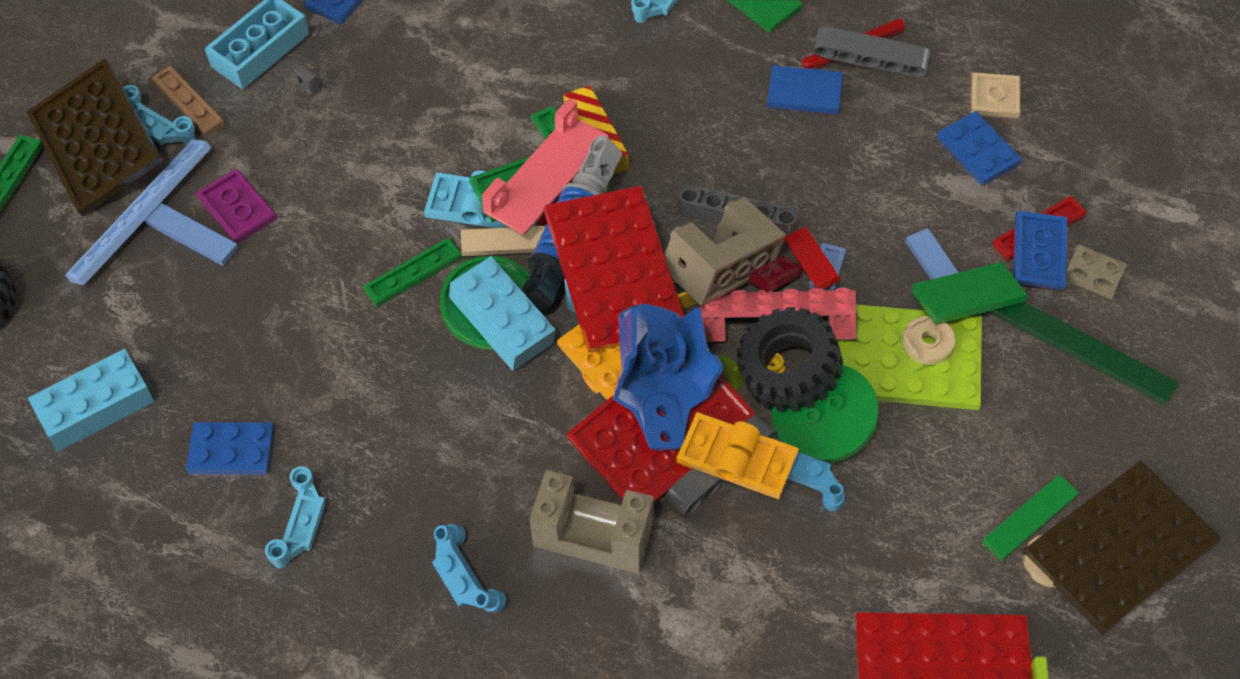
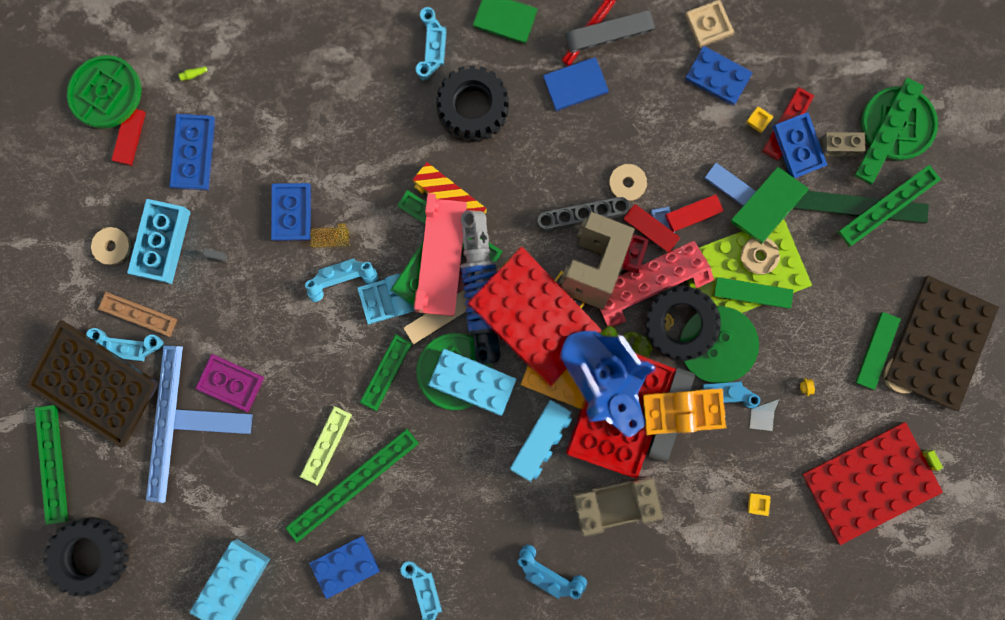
camera: 30 degrees left, 25 degrees up
(202, 20) = (103, 238): none -> tan tile
(296, 314) = (326, 445): none -> yellowish green tile
(297, 367) = (351, 485): none -> green tile
(413, 76) = (291, 212): none -> blue plate
(416, 150) = (337, 274): none -> medium azure plate
(444, 118) = (330, 237): none -> clear yellow bracket
(543, 411) = (541, 438): none -> medium azure brick
(670, 32) = (472, 80): none -> black tyre
(777, 619) = (758, 504): none -> yellow plate
(811, 195) = (635, 174): none -> tan tile
(837, 523) = (763, 416): none -> white sticker
(872, 267) = (694, 213): none -> red tile
(898, 375) = (753, 293): none -> green tile
(914, 514) = (807, 387): none -> yellow plate
(1004, 207) = (759, 119): none -> yellow plate
(1123, 357) = (889, 205): none -> green plate
(1161, 280) = (888, 131): none -> green plate
(1182, 283) = (915, 134): none -> green plate

